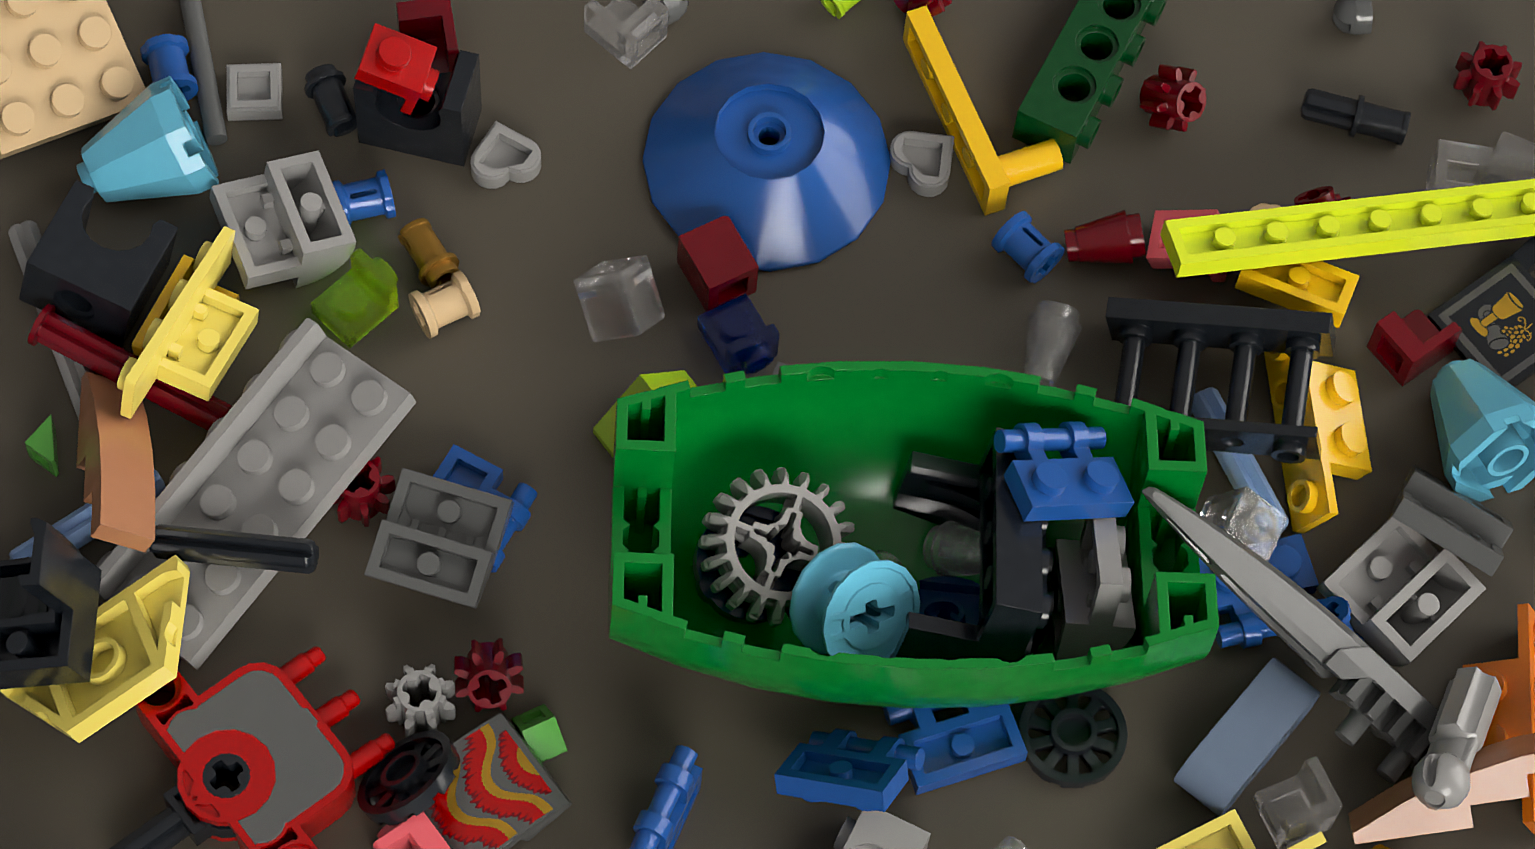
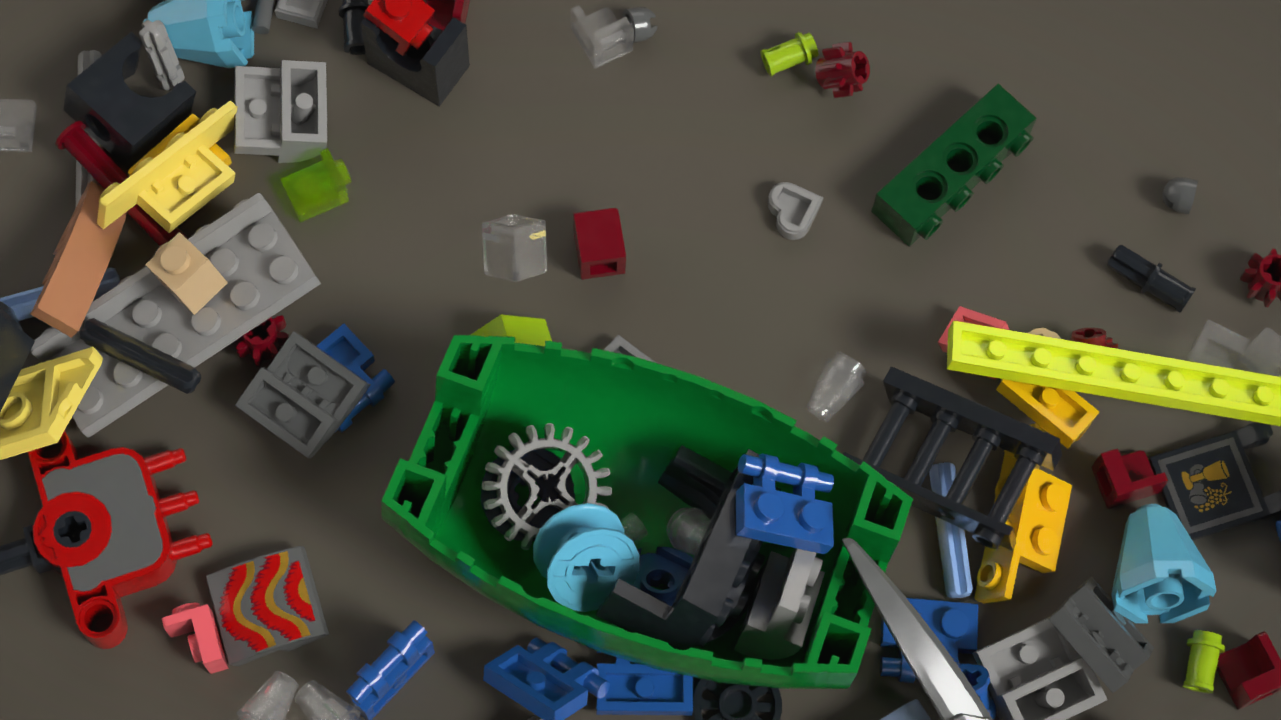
camera: 20 degrees right, 5 degrees up
(43, 446) = (44, 227): bright green piece -> none
(117, 199) = (161, 54): none -> light grey axle
(257, 434) = (186, 273): none -> tan brick
(366, 197) = (350, 110): blue bush -> none
(408, 777) = (209, 575): black wheel -> none
(411, 689) = (245, 504): light grey gear -> none
(428, 253) = (385, 178): pearl gold pin -> none
(444, 304) = (379, 211): tan bush -> none
(488, 675) = (301, 513): dark red gear -> none
(504, 157) = (471, 109): light grey tile -> none
(540, 732) = (327, 570): bright green piece -> none
(739, 336) = (596, 306): clear blue bracket -> none
(786, 198) = (679, 208): blue dish -> none
(986, 172) = (839, 236): yellow piece -> none
(1027, 247) = (847, 304): blue bush -> none
(1107, 239) = (912, 317): dark red cone -> none
(1172, 98) = (1007, 219): dark red gear -> none
(1246, 519) = (931, 582): clear bracket -> none

